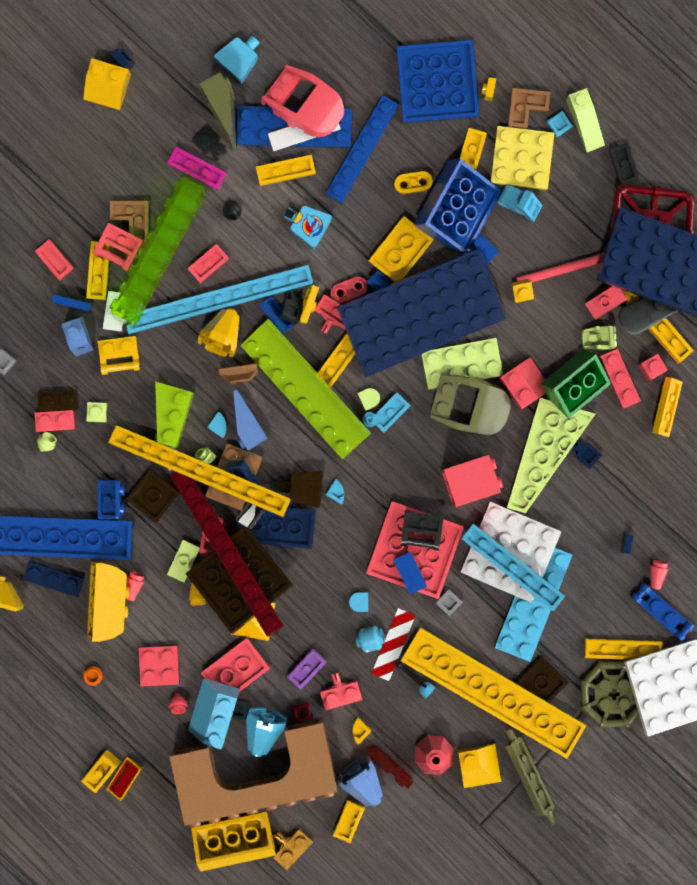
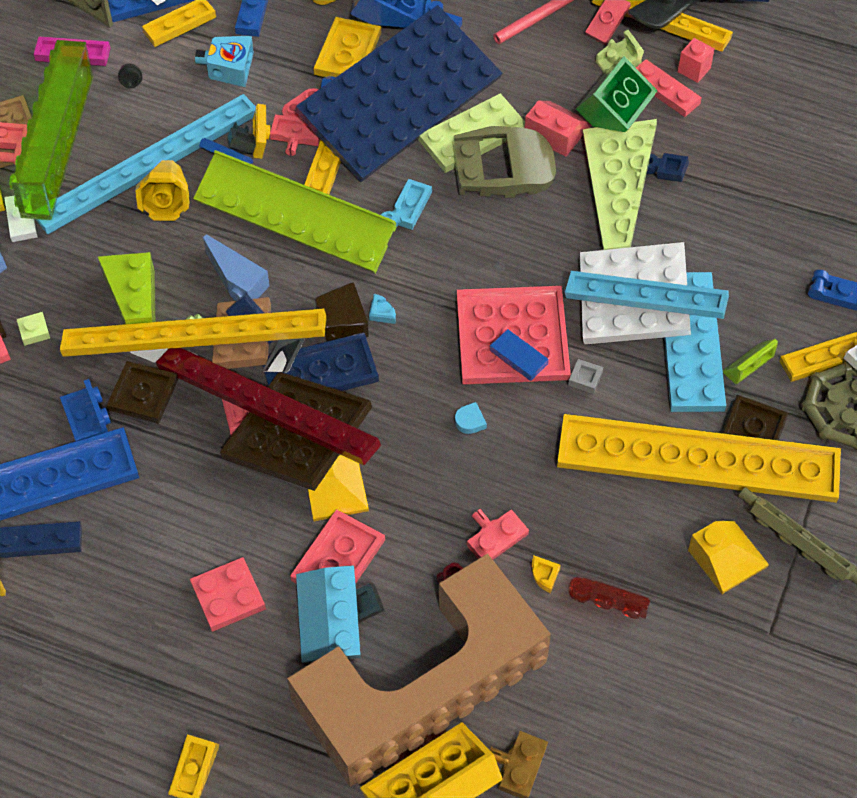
camera: 20 degrees left, 30 degrees down
(92, 675) = (136, 640): orange plate -> none
(106, 602) = (120, 526): yellow windscreen -> none
(118, 349) = (39, 253): yellow plate -> none
(124, 778) = (233, 763): red slope -> none
(134, 581) = (153, 503): coral cone -> none
(178, 704) = (274, 631): coral plate -> none
(183, 560) = (210, 462): yellowish green plate -> none
(195, 597) = (247, 483): yellow cone -> none
(207, 142) = (77, 27): pearl dark grey plate -> none
(208, 263) = (121, 132): coral plate -> none
(218, 425) = (199, 290): medium azure tile -> none
(239, 373) = (207, 221): medium nougat slope -> none
(263, 730) = (409, 613): medium azure cone -> none
(306, 669) = (435, 521): medium lavender plate -> none
(348, 821) = (585, 694): yellow plate -> none
(362, 782) = (582, 629): medium blue cone -> none
(369, 398) = (377, 200): yellowish green tile -> none
(370, 638) = (504, 452): medium azure head -> none
(393, 644) = (538, 455): sticker -> none
(422, 524) = (507, 295): pearl dark grey plate -> none
(424, 688) = (607, 486): hinge -> none
(431, 747) = (660, 562): coral cone -> none
(472, 480) = (544, 222): coral container -> none
(522, 290) = (507, 41): yellow plate -> none
(563, 633) = (751, 361): none -> lime slope
(626, 545) = (770, 237): dark blue tile -> none
(658, 572) = (825, 252): coral cone -> none
(667, 406) = (734, 92): yellow plate -> none

